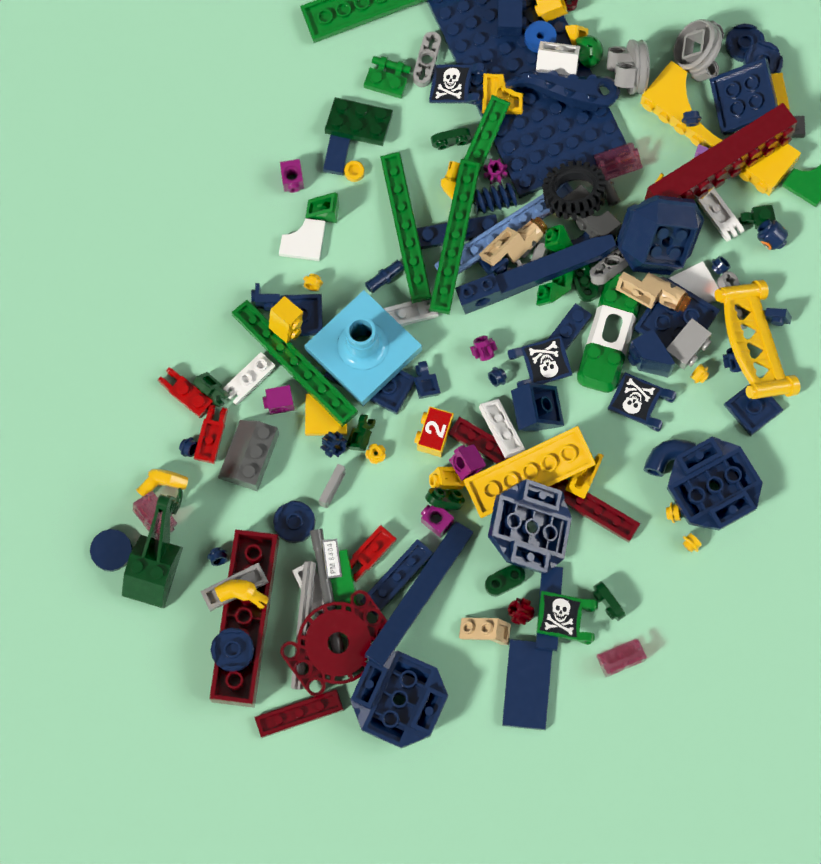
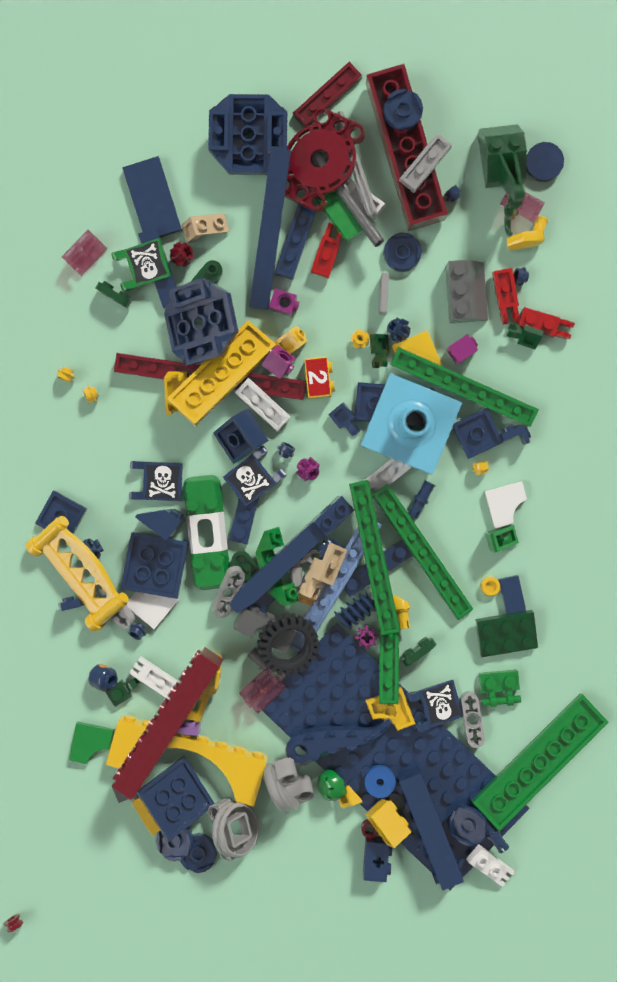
camera: 155 degrees right, 15 degrees up
(241, 590) = (417, 155): yellow arm -> none
(249, 378) = (496, 360): white hinge -> none
(286, 320) = (487, 415): yellow brick -> none
(289, 168) = (550, 560): magenta brick -> none
(331, 558) = (355, 225): sticker -> none
(445, 498) = (281, 322): dark green plate -> none
(558, 57) = (354, 764): white brick -> none
(653, 290) = (182, 580): tan plate -> none
(659, 234) = (194, 631): dark blue piece -> none
(663, 454) = (116, 444): dark blue cylinder -> none
(689, 343) = (133, 543): light grey brick -> none
(691, 118) = (212, 756): dark blue plate -> none
(700, 374) = (116, 525): yellow plate -> none
(717, 463) = (42, 424): dark blue piece -> none

